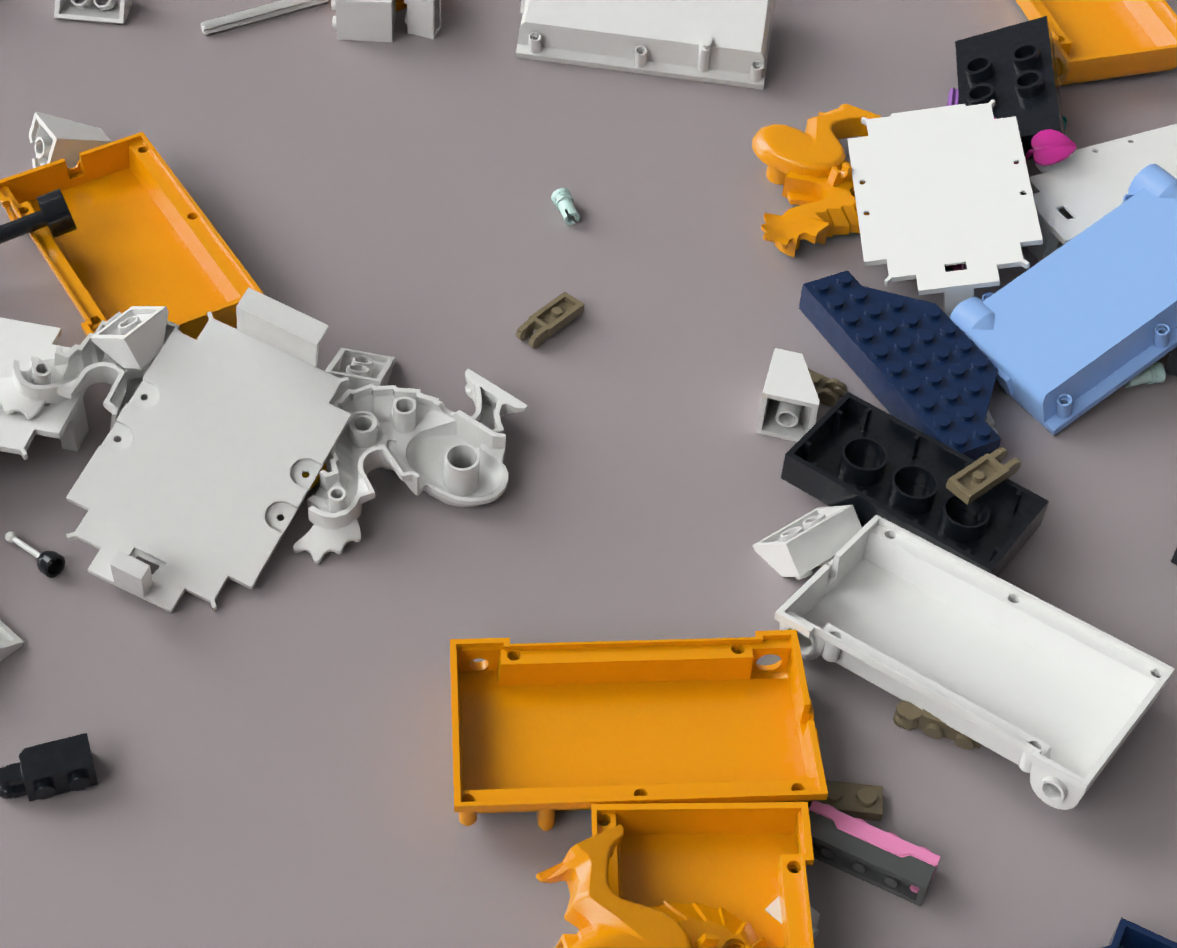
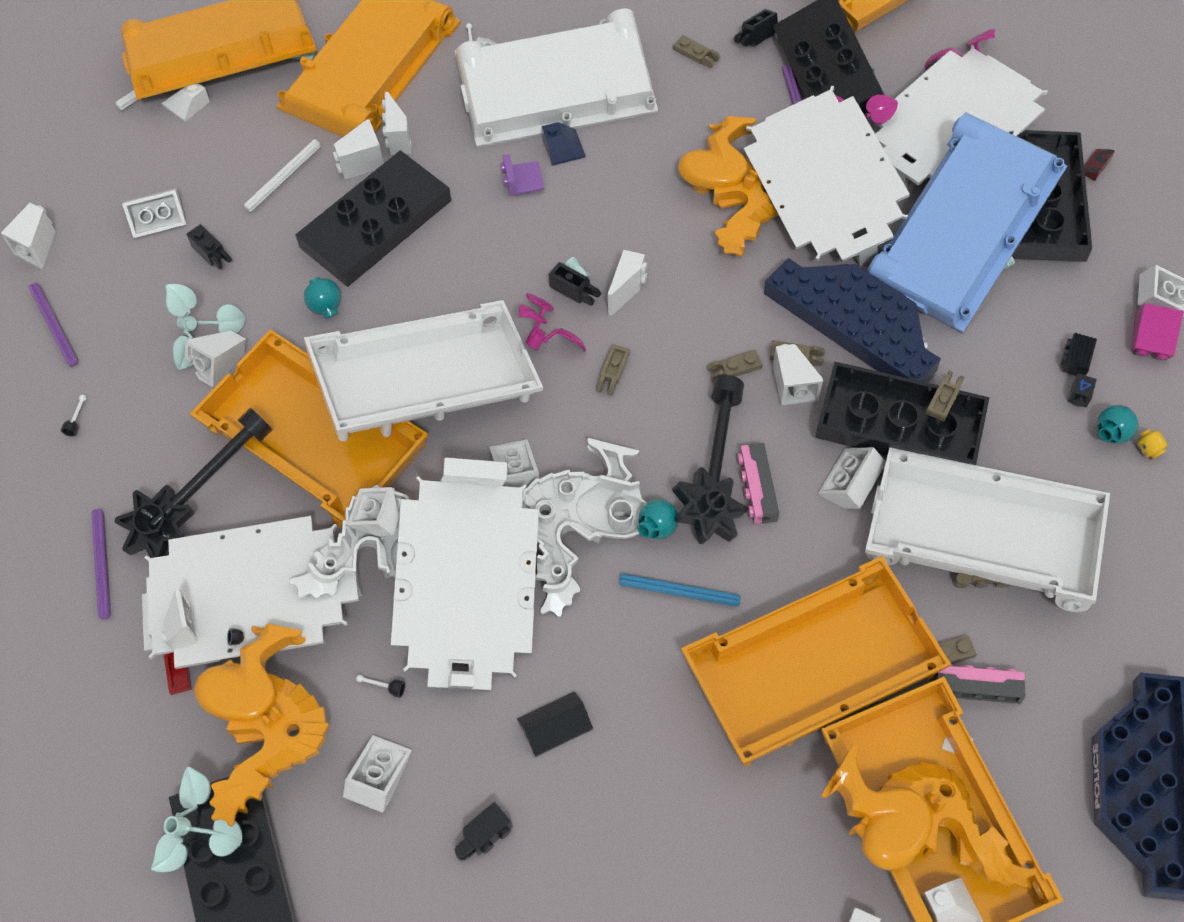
camera: 15 degrees left, 15 degrees up
(55, 65) = (179, 302): none -> light aqua plant
(130, 45) = (207, 246): none -> black hinge
(231, 131) = (322, 297): none -> teal brick
(231, 682) = (555, 723): none -> black slope
(295, 225) = (421, 369): none -> white piece
(345, 79) = (373, 218): none -> black plate
(472, 252) = (537, 335): none -> dark pink plant
(497, 588) = (680, 590): none -> dark azure axle
(509, 491) = (657, 519): none -> teal brick
(549, 213) = (572, 284): none -> black hinge
(550, 97) = (521, 177): none -> medium lavender bracket
(592, 493) = (707, 500): none -> black piece
(618, 230) = (627, 280): none -> white slope
(622, 79) = (561, 143): none -> dark blue slope
(673, 503) = (759, 483): none -> piece
(715, 368) = (736, 365): none -> dark tan hinge
(845, 45) = (696, 51): none -> dark tan hinge
(933, 41) = (757, 28): none -> black hinge

